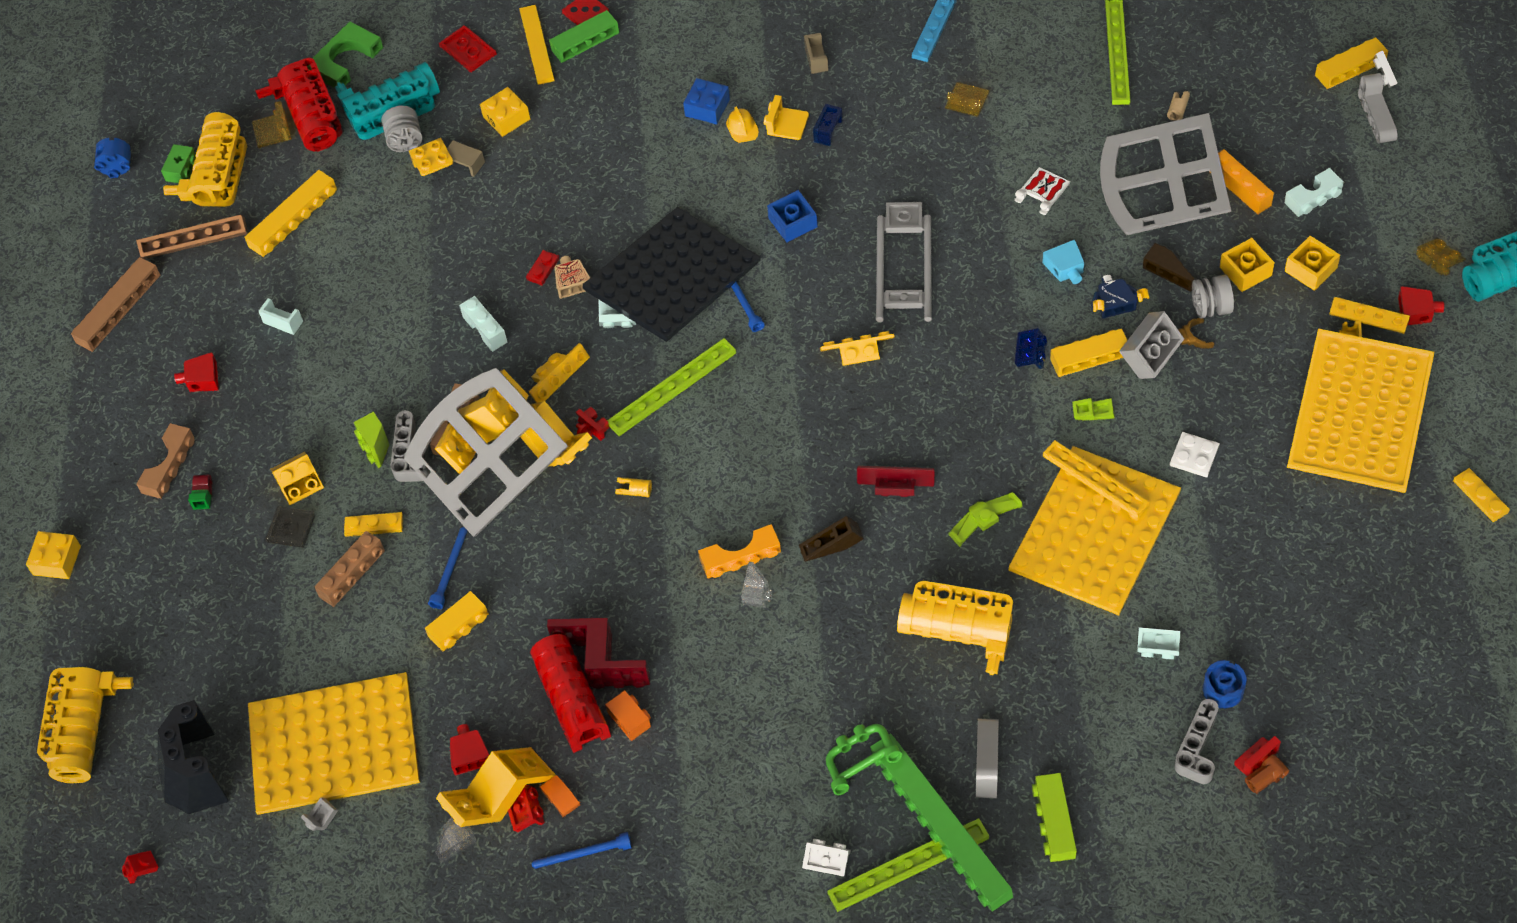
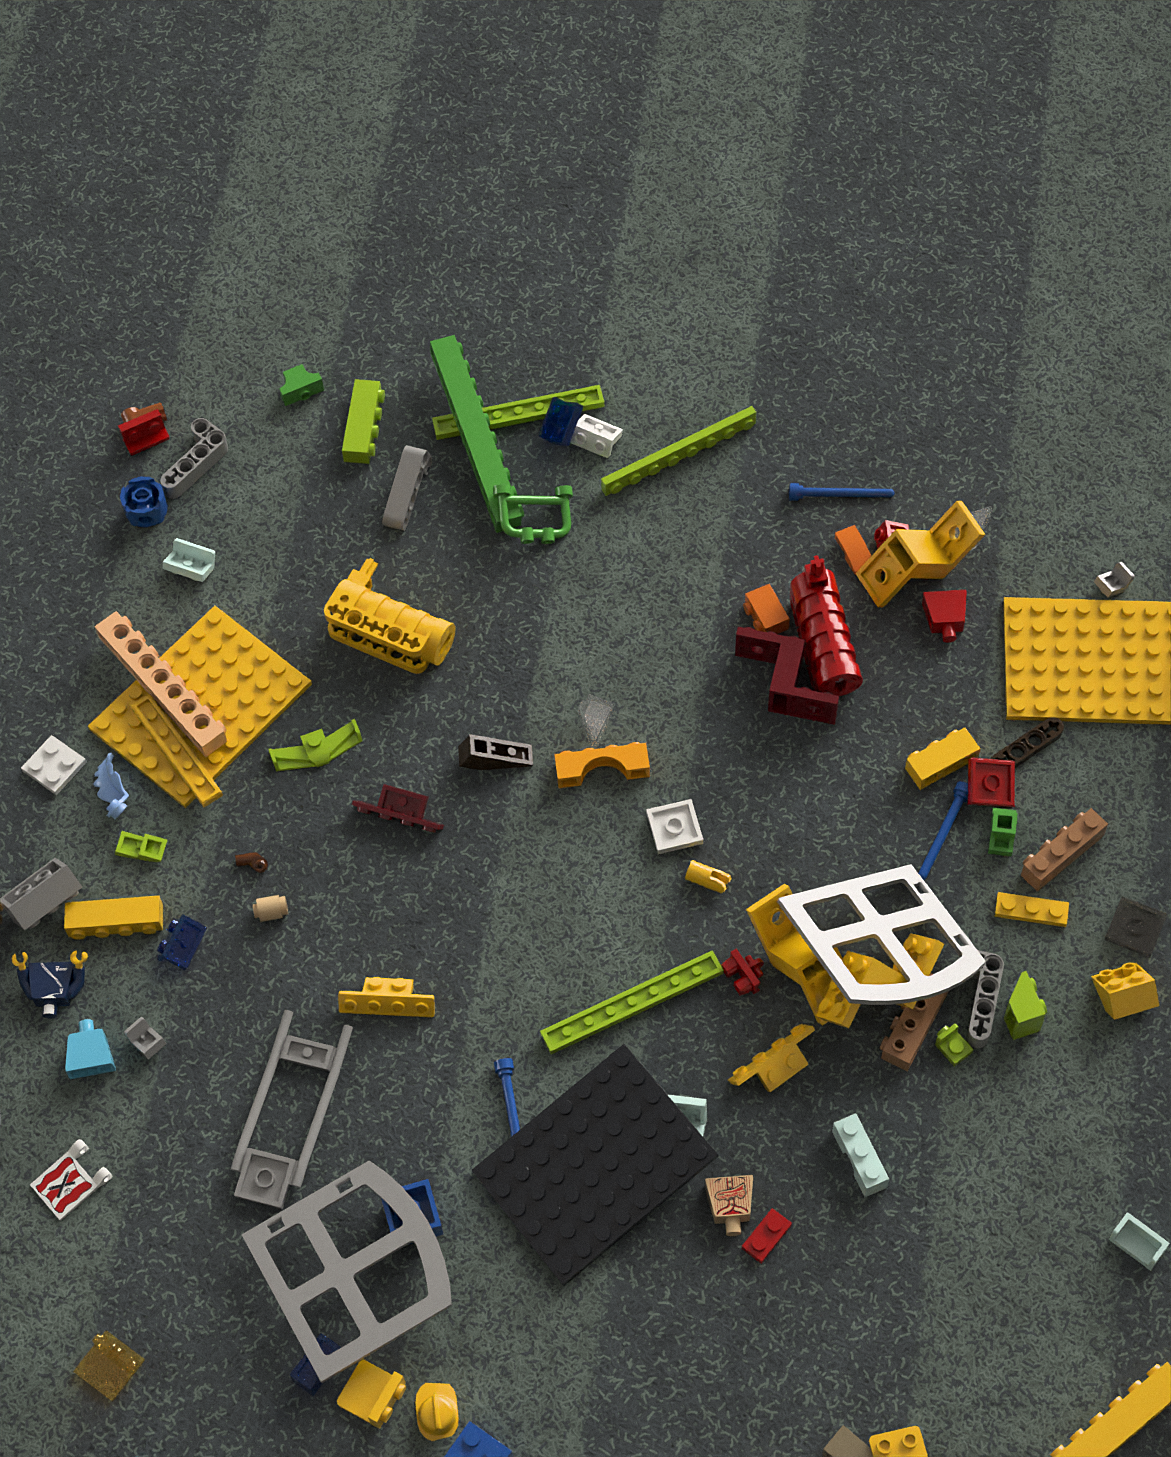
camera: 170 degrees left, 5 degrees up
(384, 649) = (1026, 747): none -> dark brown beam
(400, 574) = (1002, 831): none -> bright green brick
(413, 607) = (991, 782): none -> red tile
(421, 411) = (952, 1044): none -> lime bracket
(668, 519) = (674, 826): none -> white plate
(740, 857) = (672, 454): none -> lime plate
(824, 164) = (340, 1272): none -> light grey window
(860, 853) = (560, 421): none -> clear blue bracket
(970, 386) = (270, 908): none -> tan brick
(999, 421) = (254, 860): none -> reddish brown arm
(1026, 279) = (144, 1038): none -> light grey bracket
(1124, 426) = (111, 788): none -> light blue plant
(1130, 842) = (300, 385): none -> bright green brick
(1143, 523) = (205, 739): none -> light nougat brick

